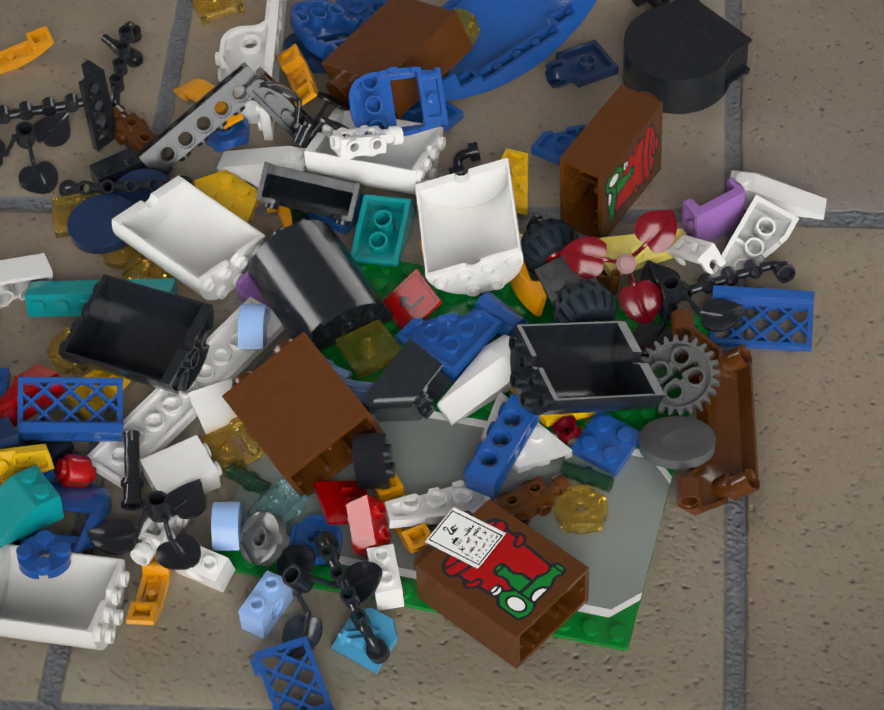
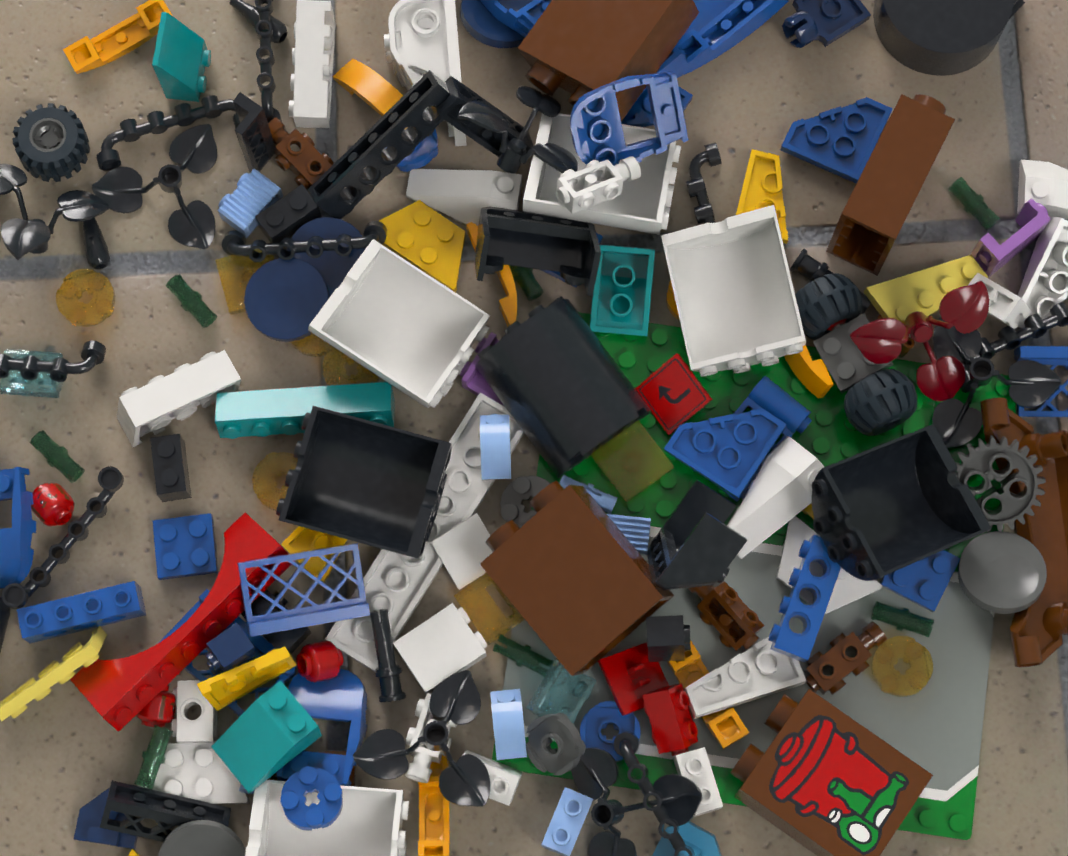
camera: 10 degrees left, 25 degrees up
(26, 226) = (191, 301): none -> clear green pin
(50, 63) = (180, 60): none -> teal slope
(76, 165) = (249, 199): none -> light blue brick
(158, 74) = (313, 64): none -> white wedge
(298, 74) = (492, 67): light orange slope -> none
(430, 456) = (729, 615): none -> reddish brown brick
(465, 537) = (790, 746): white sticker -> none
(685, 191) = (974, 203): none -> clear green pin

